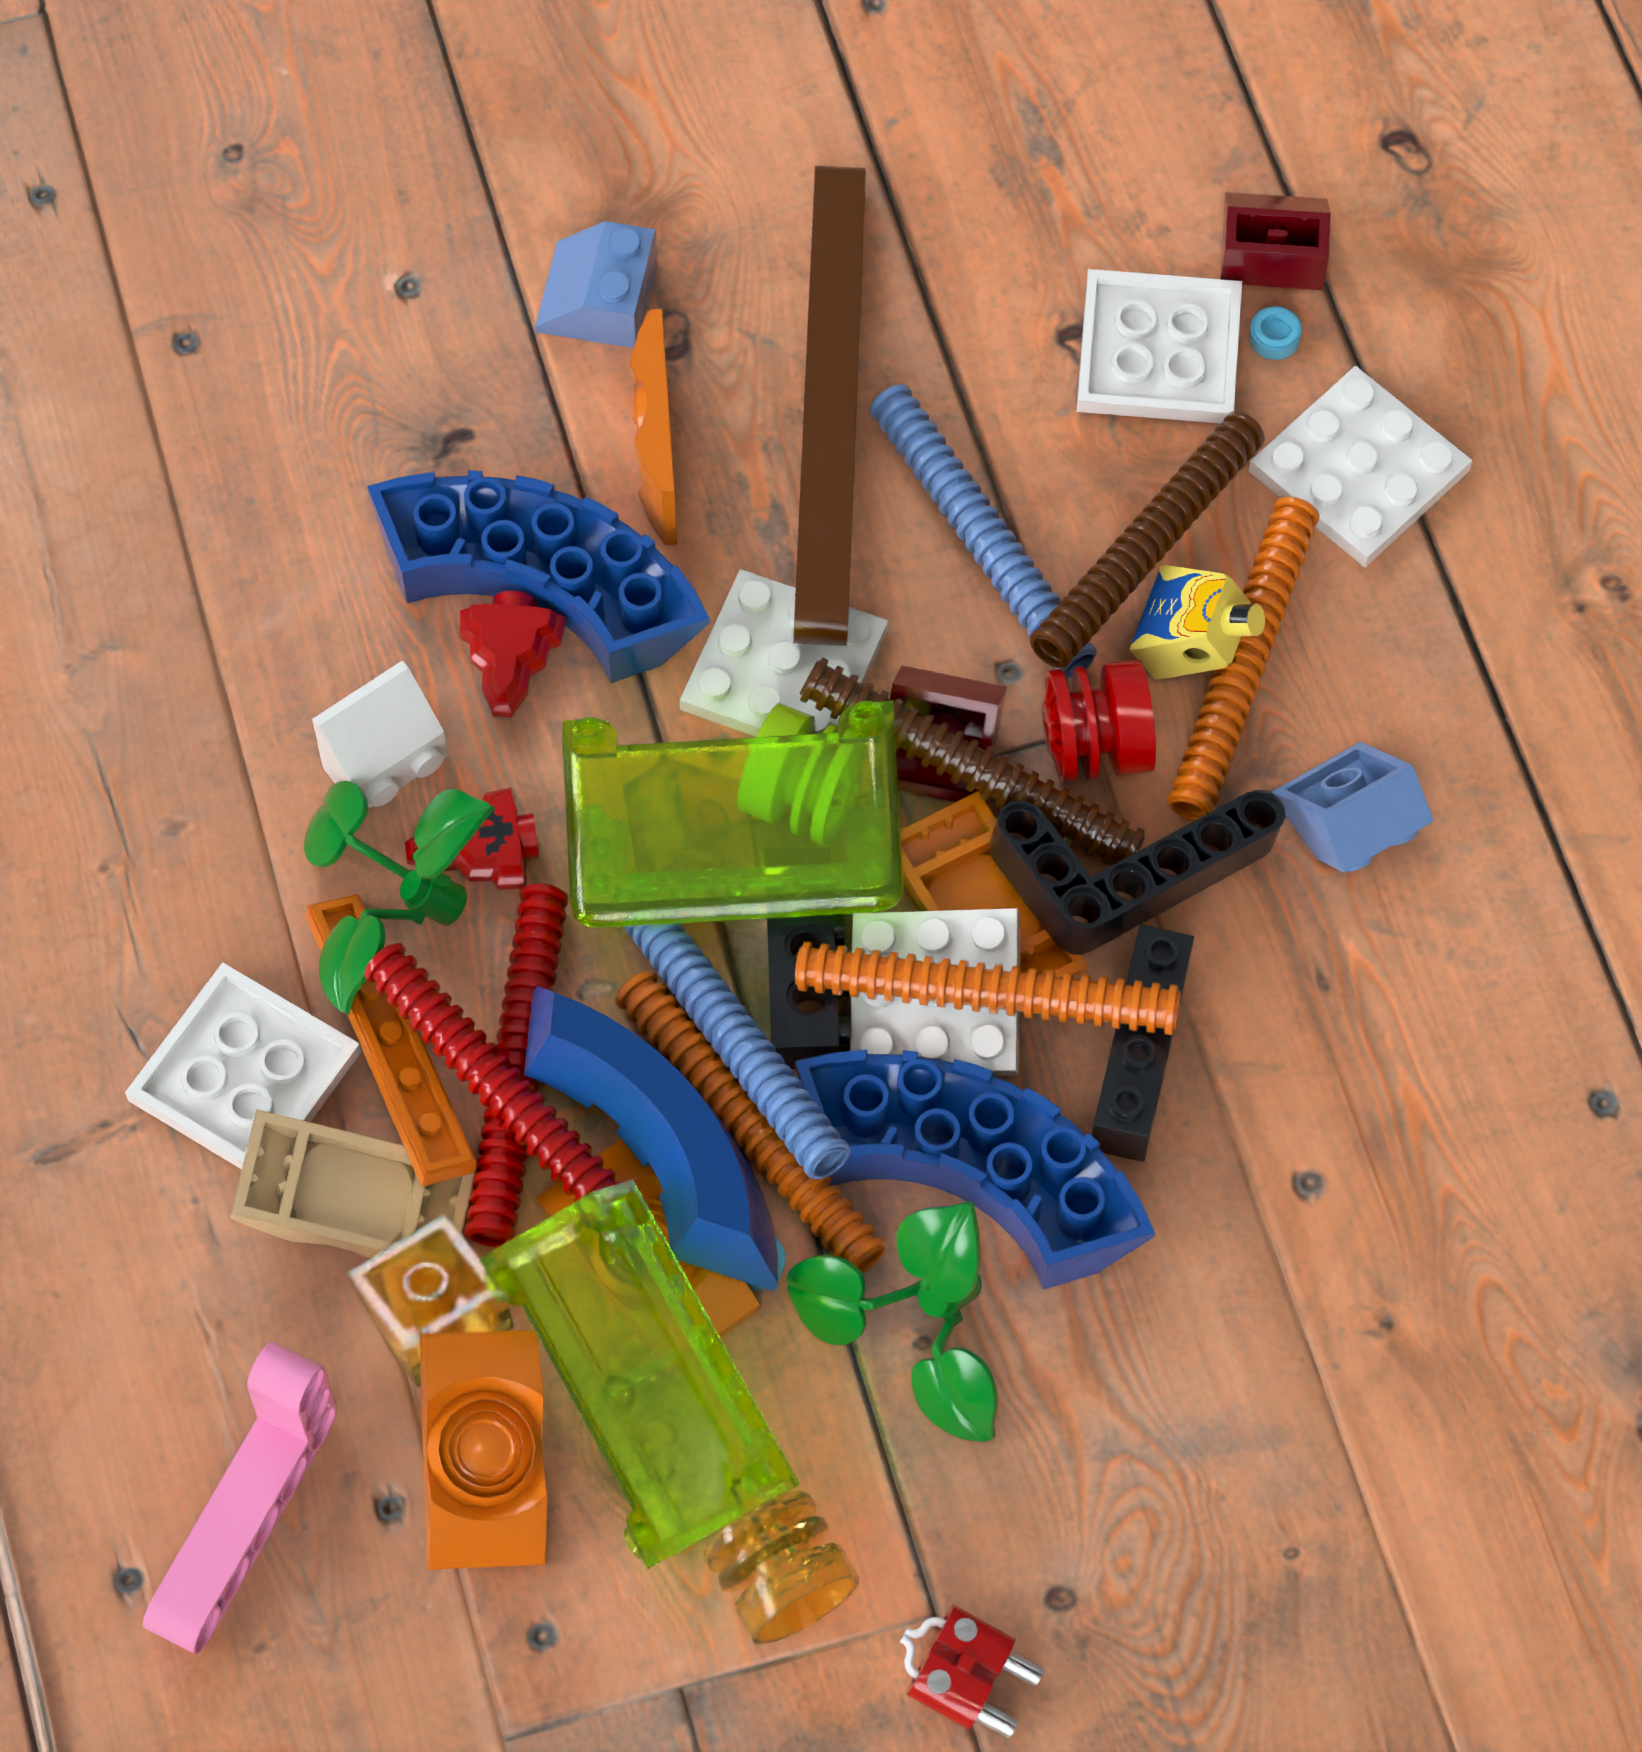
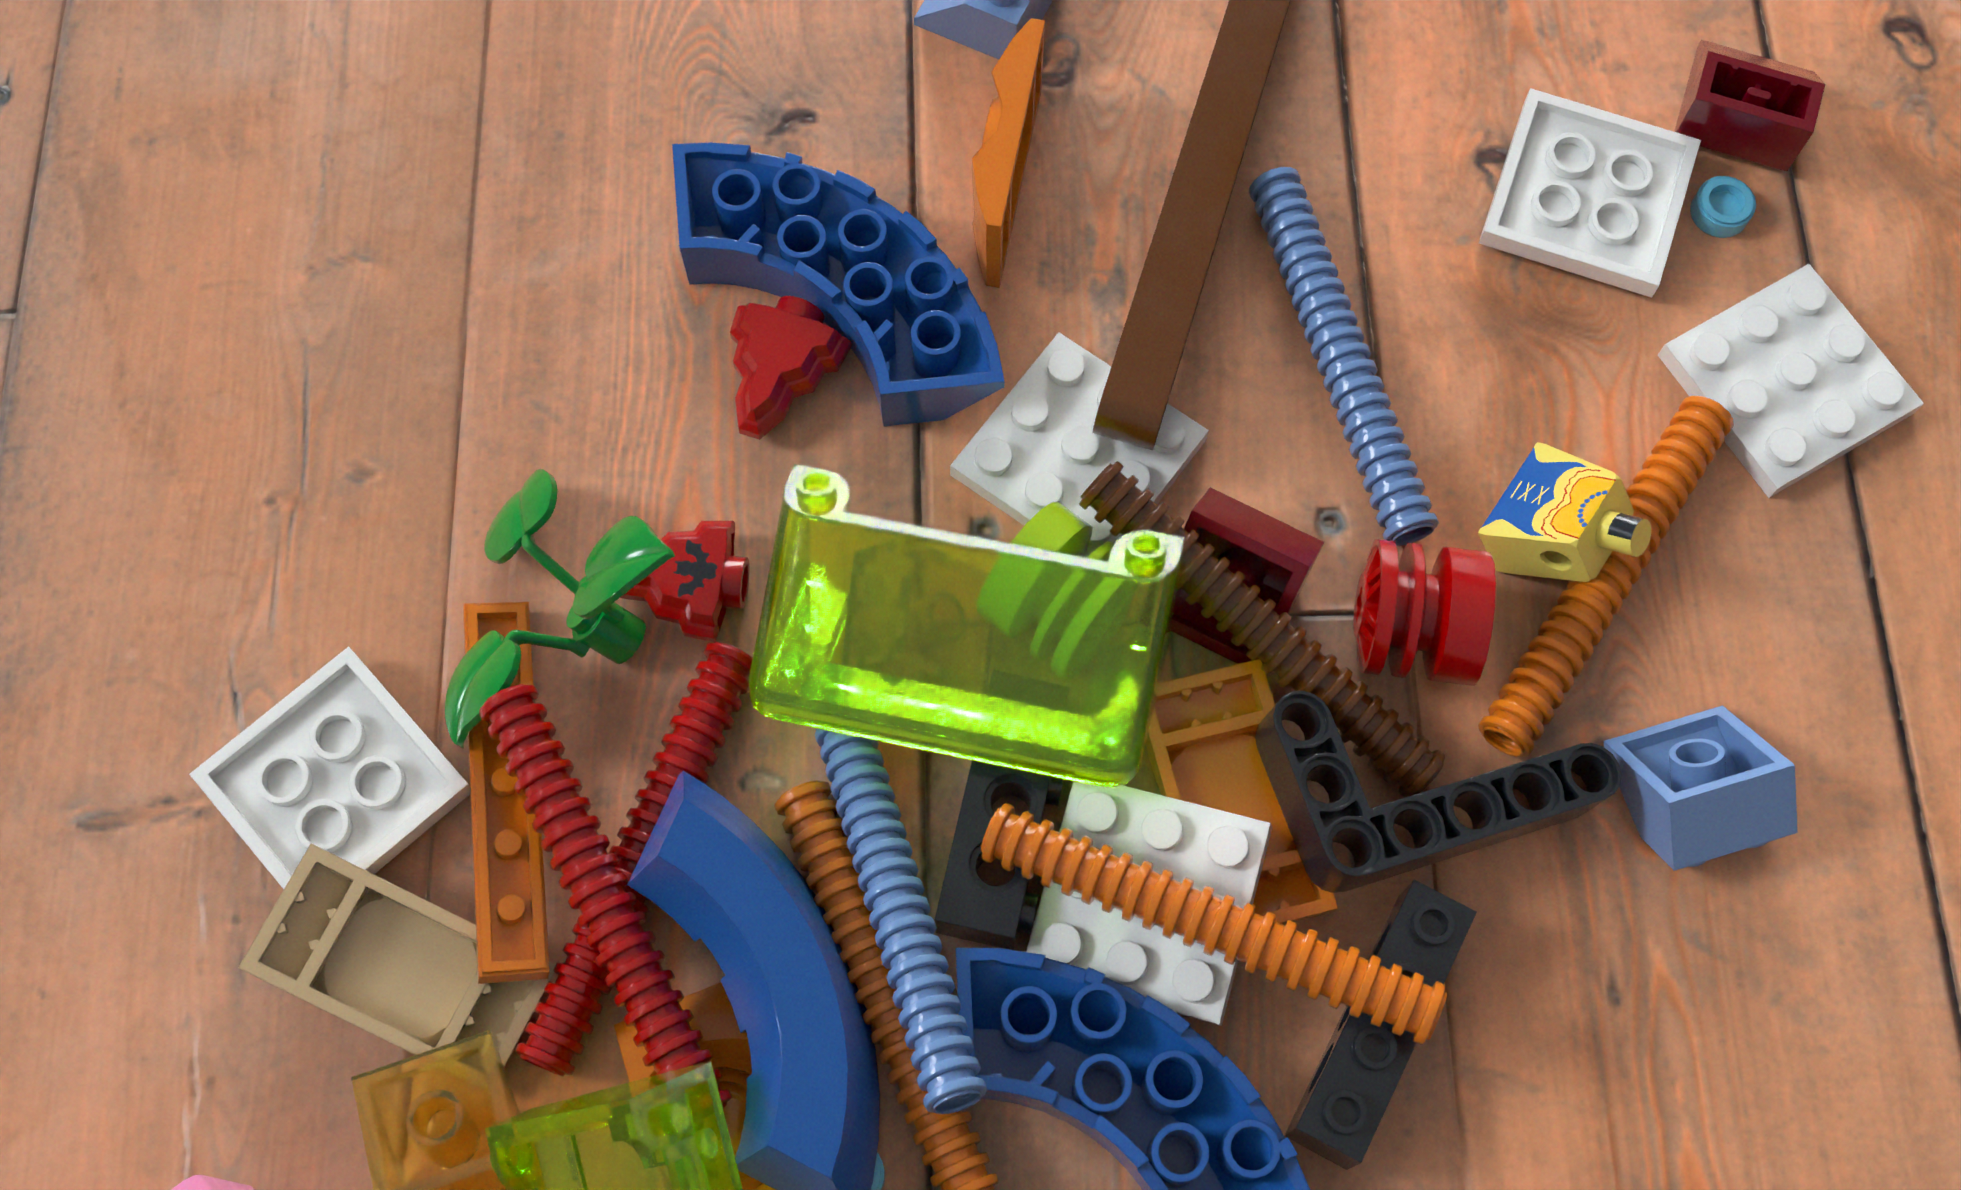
camera: 15 degrees right, 5 degrees up
(381, 736) = (599, 429): white slope -> none
(1146, 540) = (1525, 411): reddish brown piece -> none

